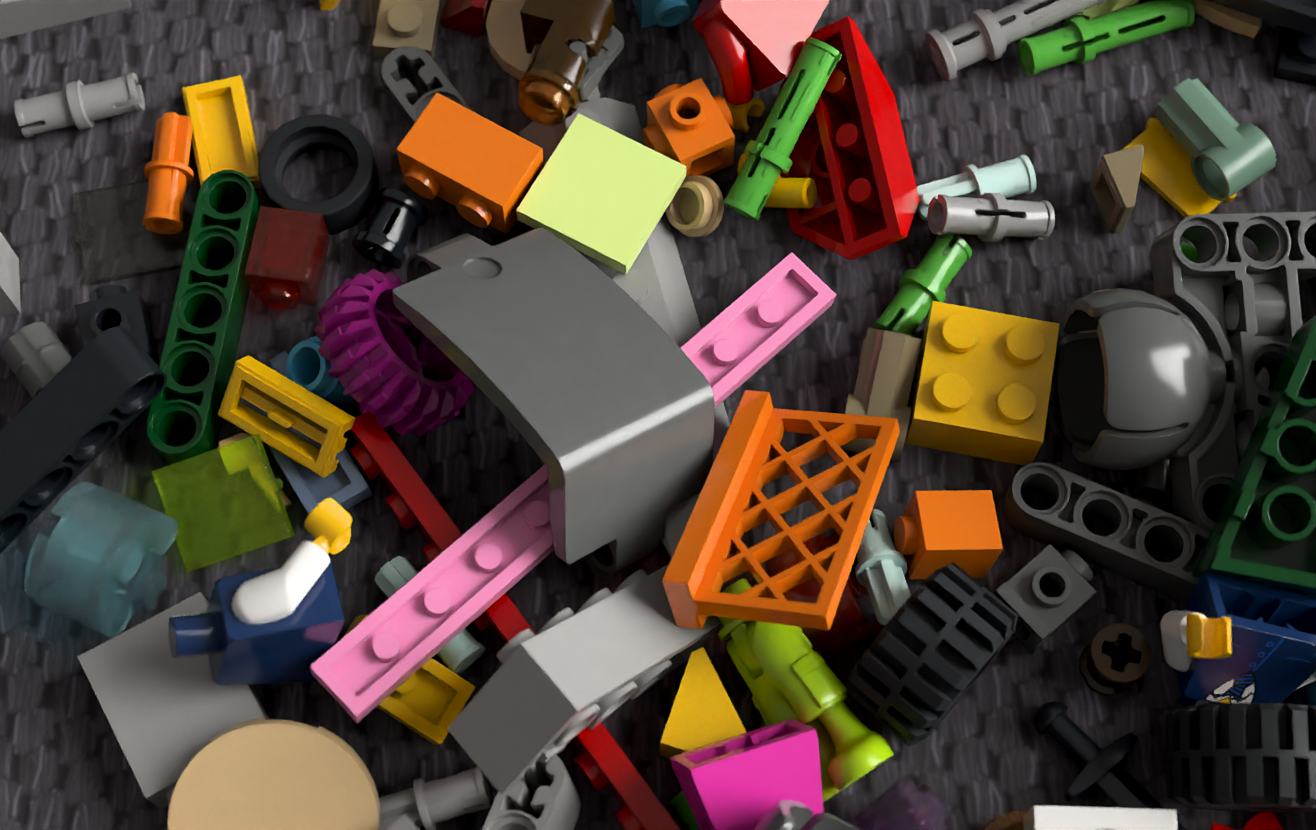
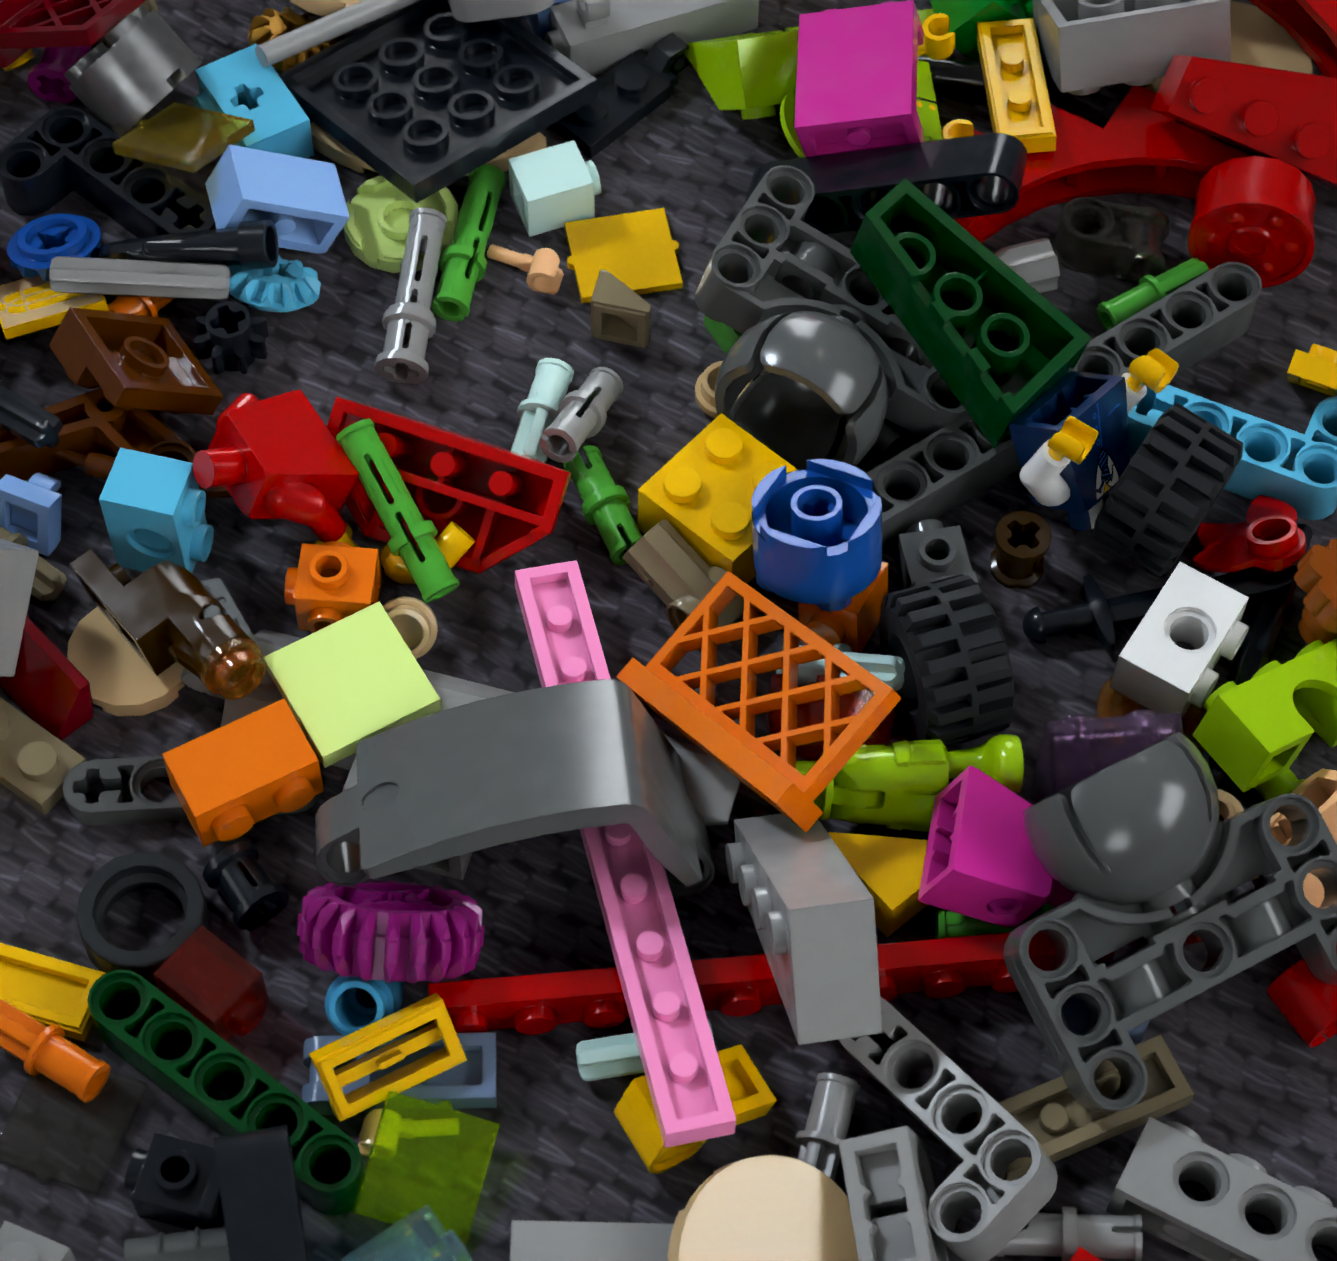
camera: 60 degrees left, 10 degrees down
(272, 619) = (606, 1136): dark blue torso -> none
(974, 468) = (817, 533): none -> blue brick
(1122, 107) = (542, 267): none -> light nougat hand
(1212, 54) = (553, 187): none -> light aqua brick
(1221, 150) = (643, 222): sand green piece -> none

